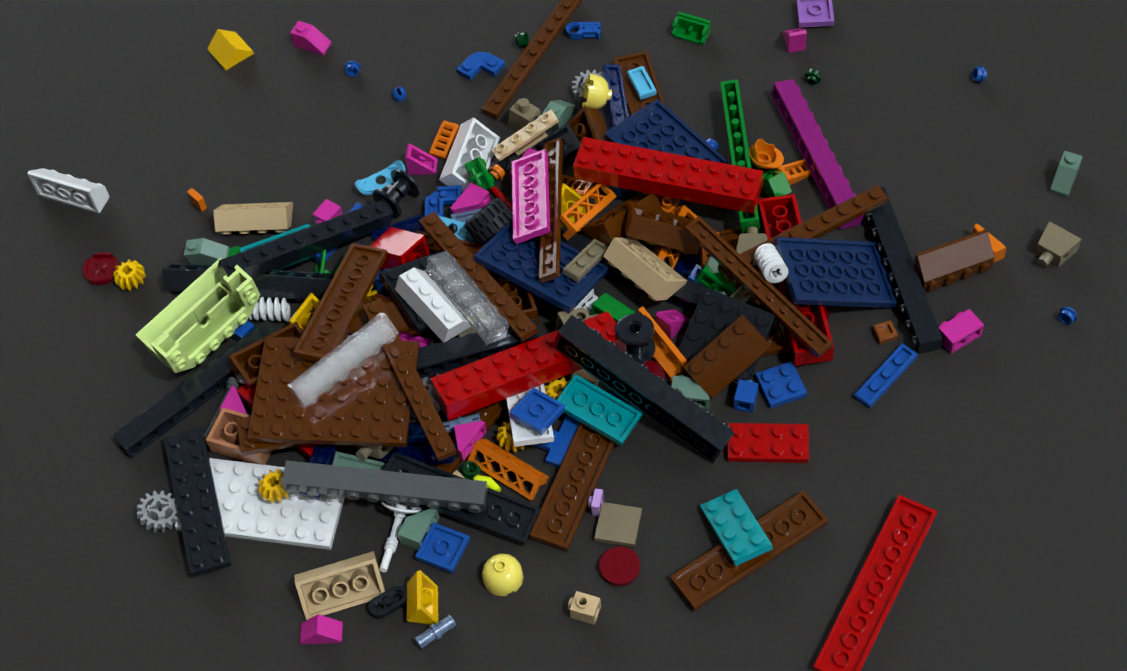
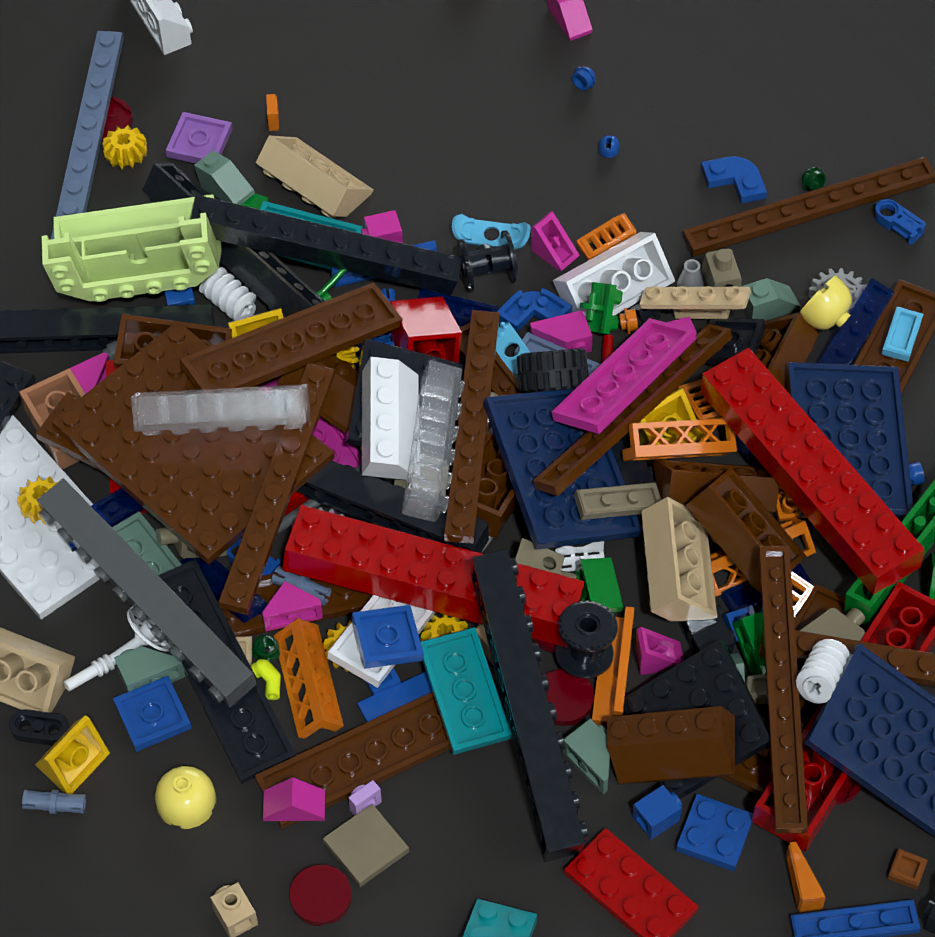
camera: 35 degrees right, 0 degrees up
(101, 283) = (90, 124): none -> sand blue plate
(167, 242) = (197, 137): none -> medium lavender plate
(508, 128) = (691, 275): none -> light grey cone
(564, 530) = (294, 802): none -> dark pink slope
(846, 374) = (805, 885): none -> orange slope

